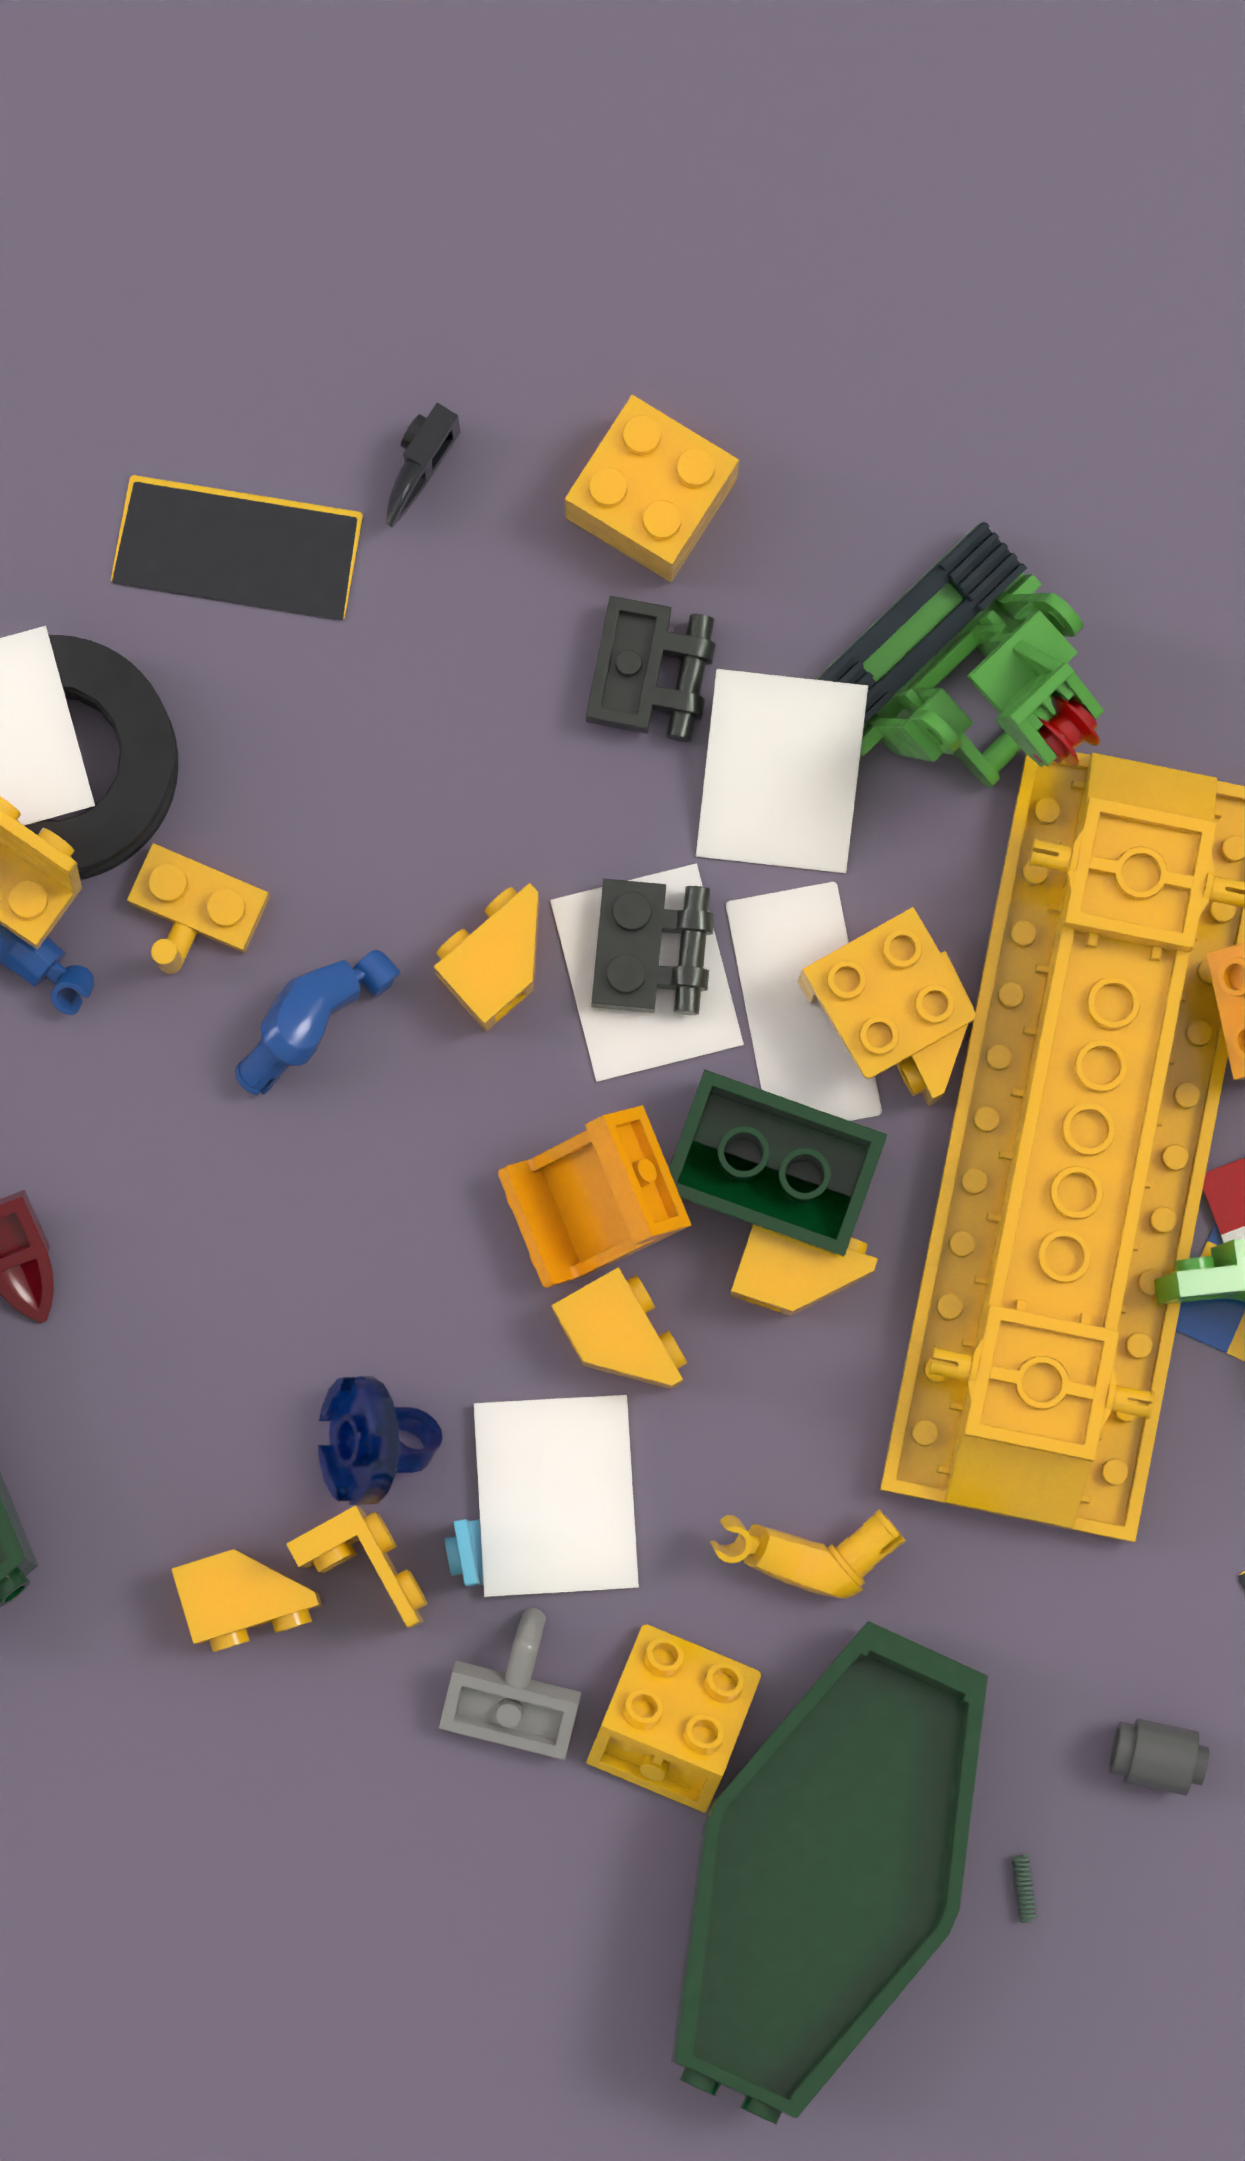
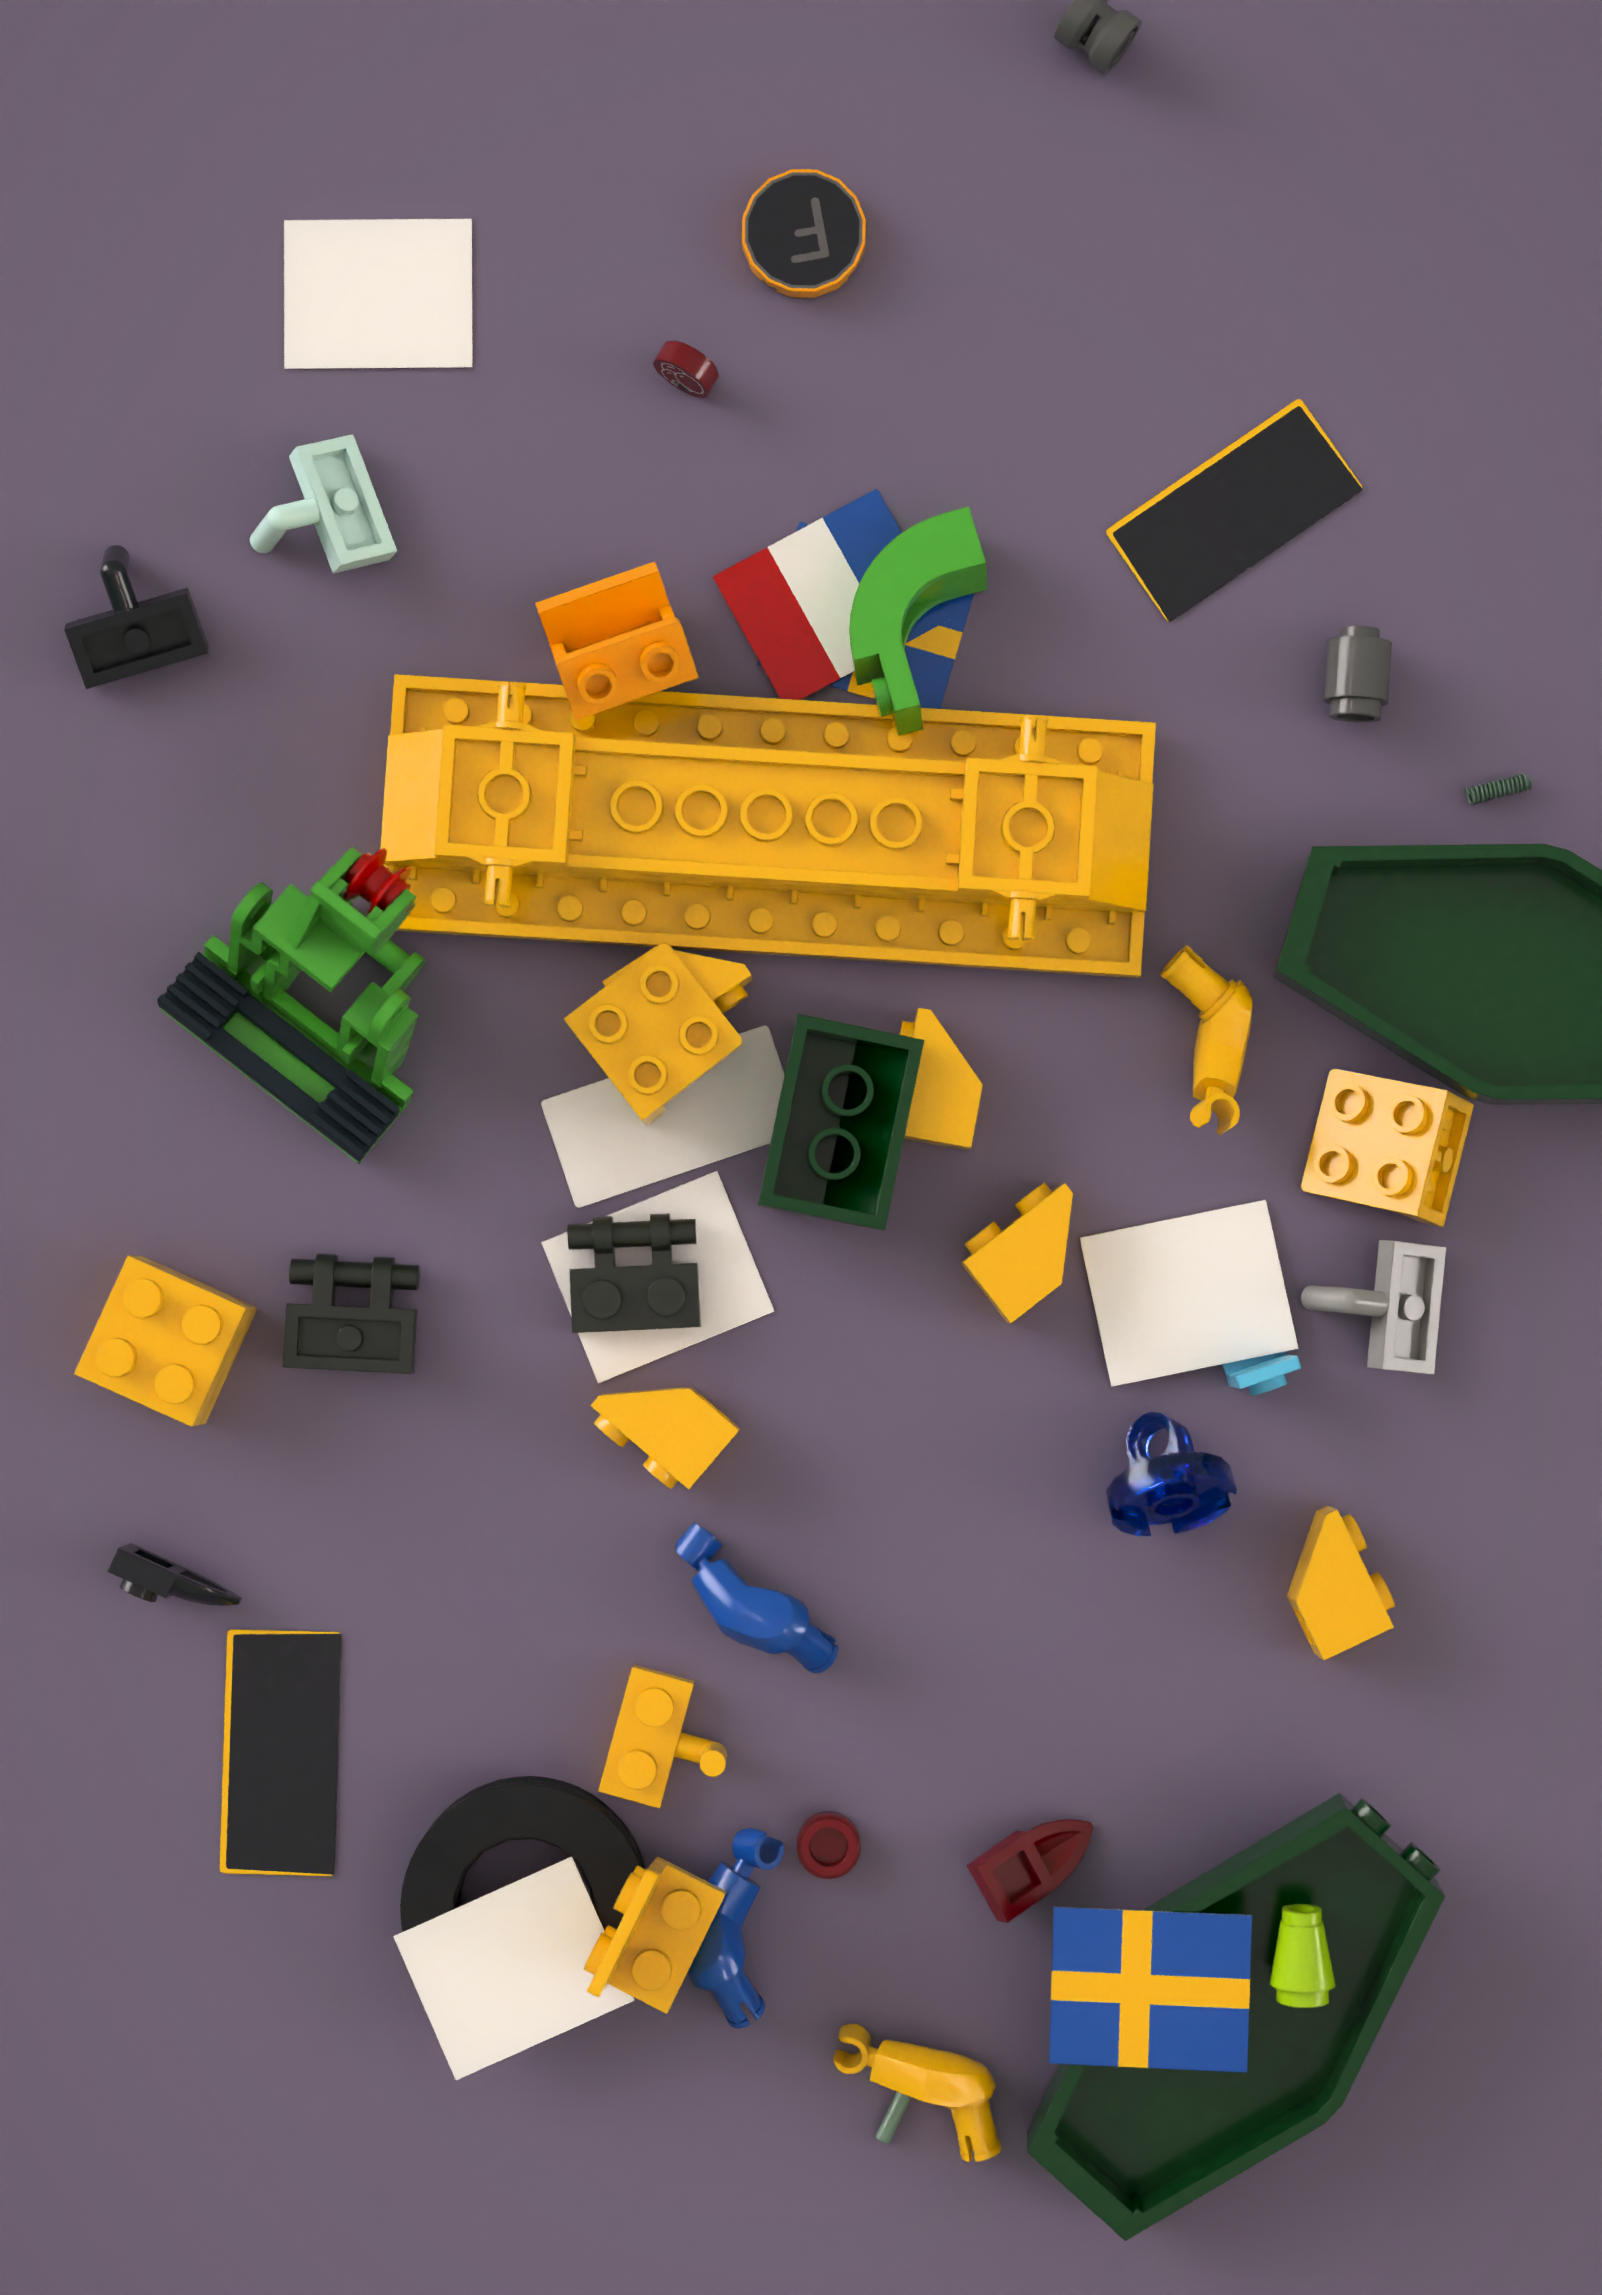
camera: 100 degrees left, 5 degrees up
(64, 1060) = (828, 1845): none -> dark red tile
(331, 1546) = (1279, 1505): yellow bracket -> none
(594, 1198) = (898, 1295): light orange panel -> none
(781, 770) = (438, 1170): white sticker -> none

